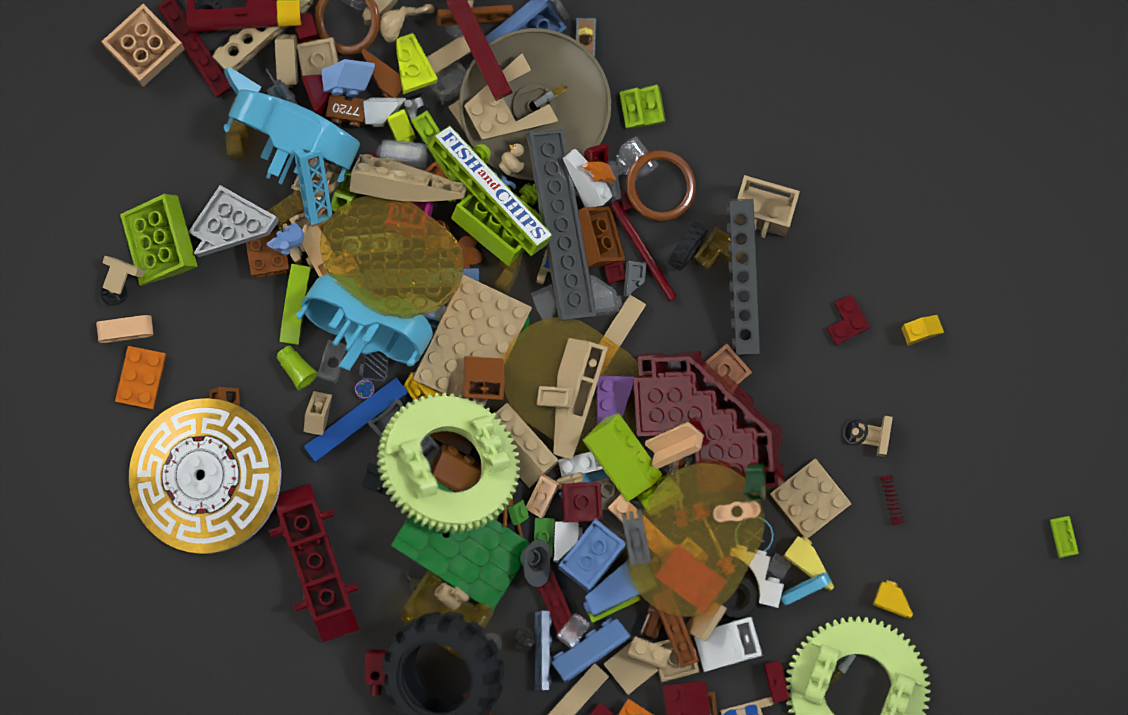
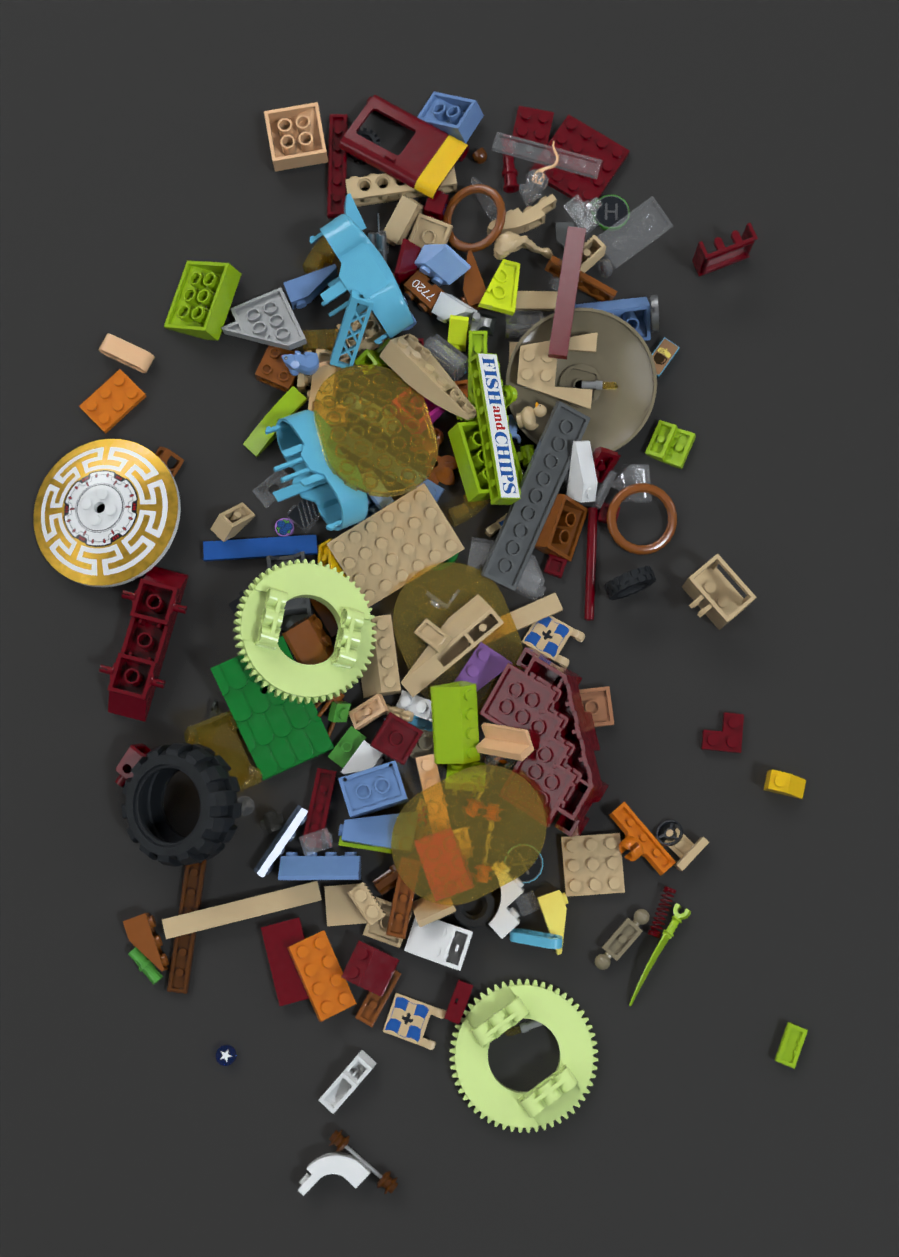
camera: 35 degrees right, 0 degrees up
(116, 278) = (147, 307): tan piece -> none
(242, 172) = (307, 287): none -> medium blue slope
(296, 367) = (240, 473): lime plant -> none
(451, 596) = (234, 744): tan piece -> none
(483, 378) = (384, 580): dark orange slope -> none
(536, 562) = (324, 764): dark grey piece -> none
(540, 367) = (437, 603): none -> clear bracket
(599, 171) = (598, 472): orange slope -> none
(634, 276) = (569, 579): dark grey tile -> none
(636, 538) = (418, 799): flat silver hinge -> none
(650, 335) = (550, 637): none -> tan flag
(713, 246) = (657, 597): clear yellow brick -> none
(723, 513) = (507, 828): light nougat piece -> none
(752, 344) = (630, 700): dark grey brick -> none
(755, 482) = (550, 820): dark green leg -> none
(836, 453) = (640, 840): none -> orange plate
(874, 543) = (622, 939): none -> dark tan plate
(892, 599) = (605, 998): yellow slope -> none
(908, 514) = (667, 935): none -> lime sword

